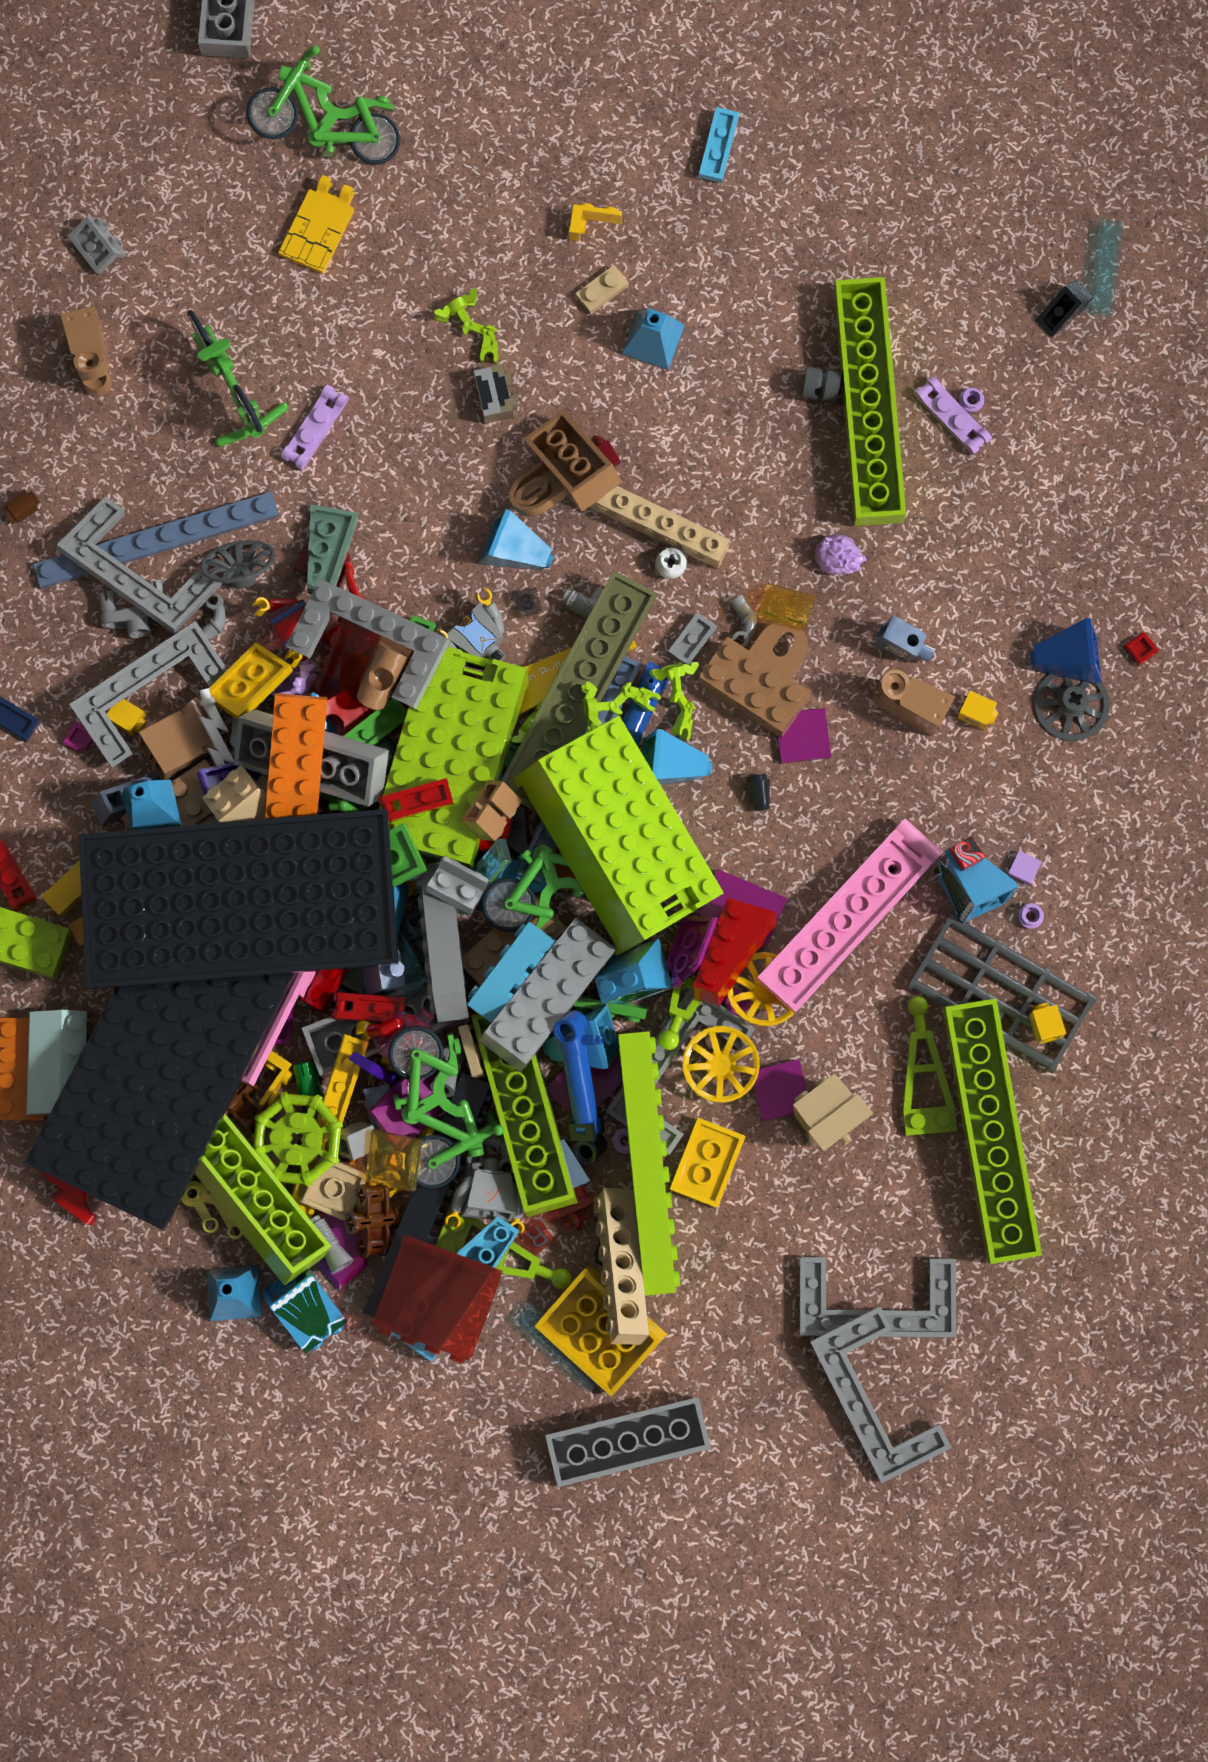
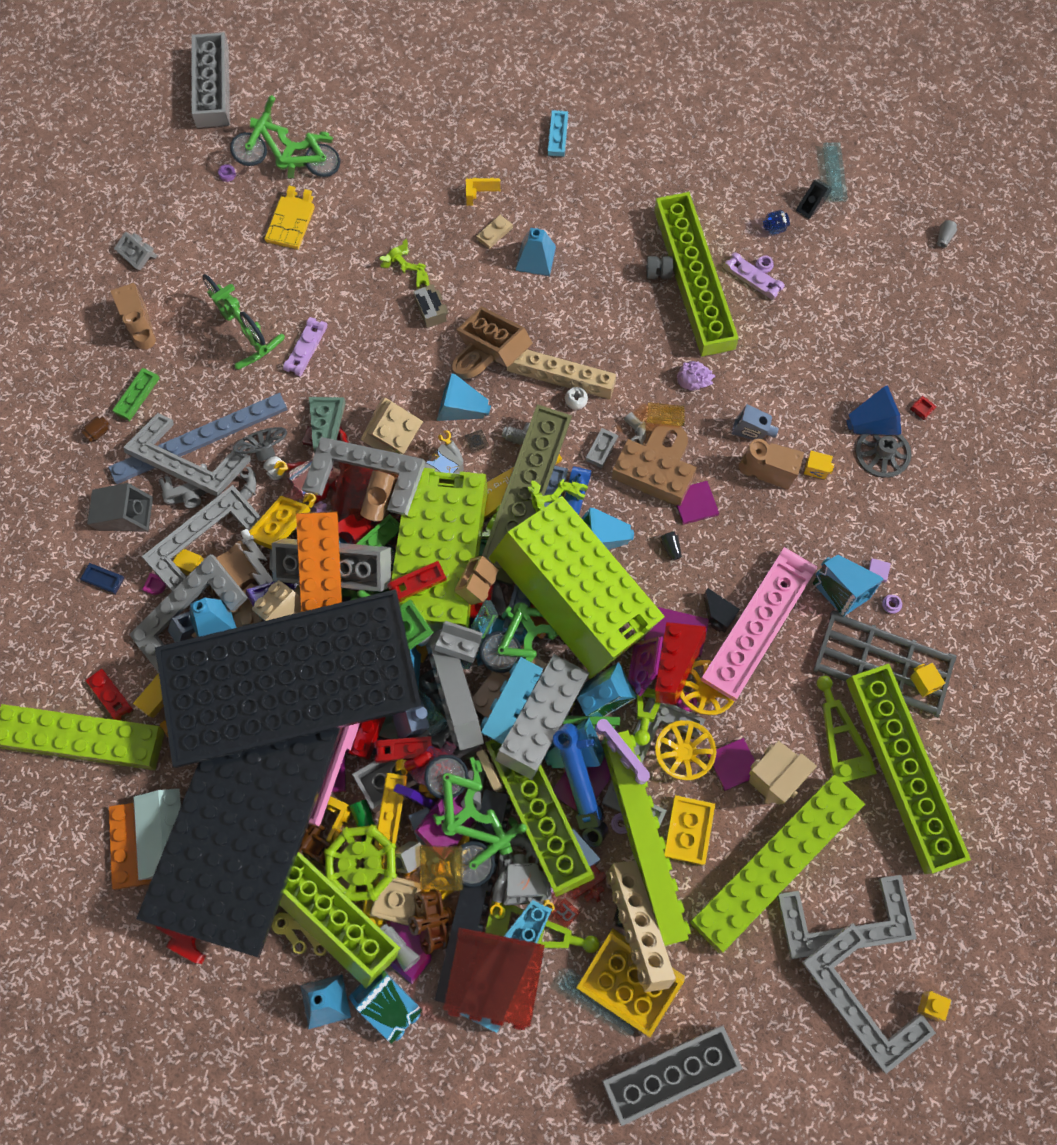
camera: 10 degrees left, 10 degrees down
(43, 627) = (120, 509): none -> dark grey slope
(78, 464) = (136, 394): none -> bright green plate
(150, 740) = (206, 573): none -> light grey plate
(236, 136) = (226, 173): none -> medium lavender tile
(247, 597) = (269, 466): none -> white piece
(415, 572) = (391, 428): none -> tan piece
(630, 1047) = (617, 744): none -> lavender plate
(673, 672) = (606, 505): lime piece -> none
(803, 891) = (719, 611): none -> black slope
(807, 1220) = (776, 864): none -> lime brick
(957, 1417) = (934, 1006): none -> yellow brick
(967, 853) = (840, 560): tile -> none
(1001, 338) = (776, 222): none -> clear blue head

